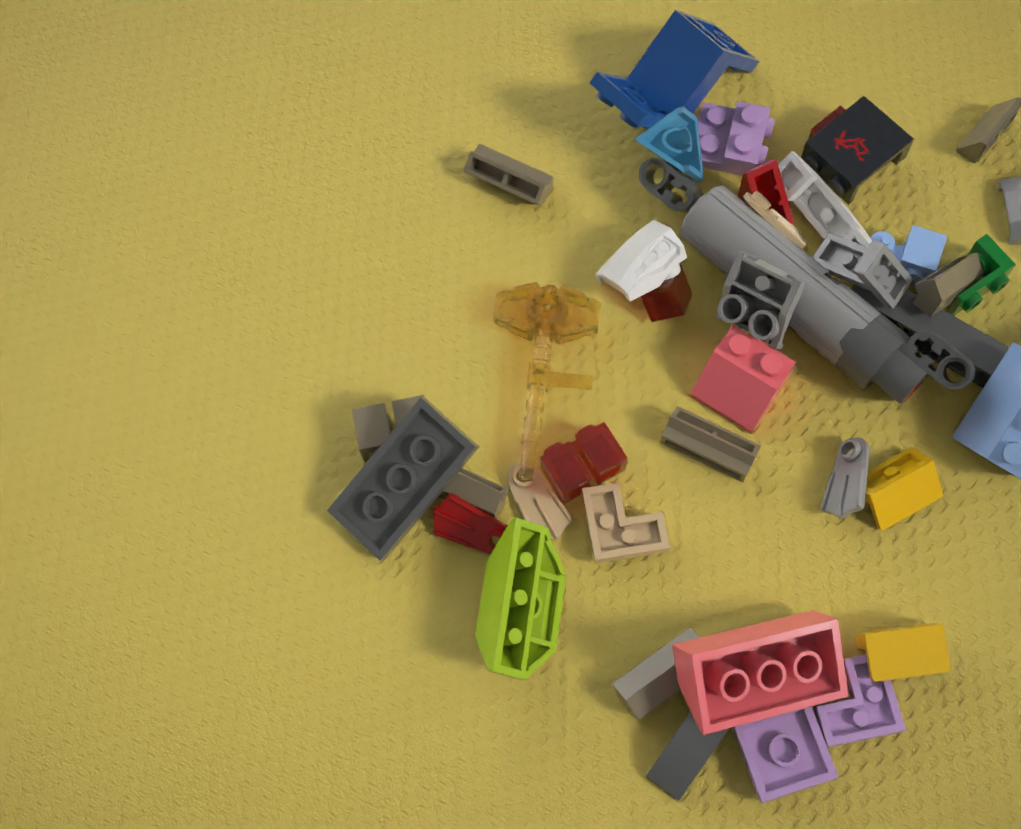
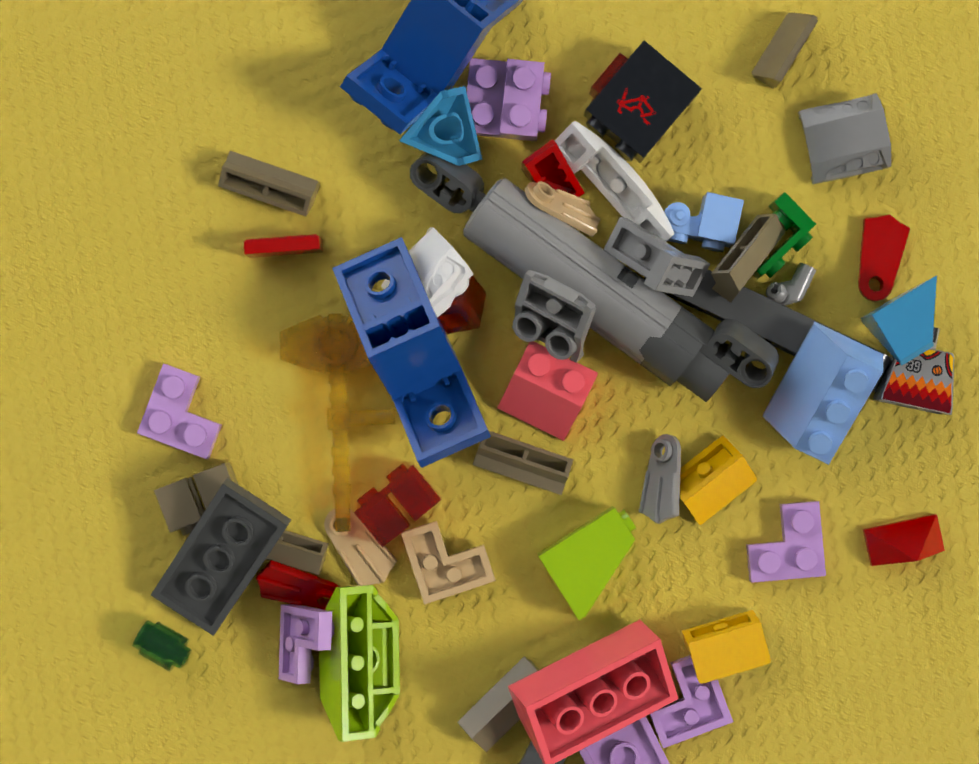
camera: 15 degrees left, 20 degrees up
(327, 561) = (162, 645): none -> clear green brick
(379, 358) = (168, 418): none -> lavender plate
(466, 563) = (300, 631): none -> lavender plate
(512, 226) = (283, 246): none -> red tile
(620, 317) = (411, 352): none -> blue bracket
(765, 540) = (588, 558): none -> lime slope
(979, 574) = (799, 552): none -> lavender plate
(993, 323) = (792, 290): none -> light grey arm

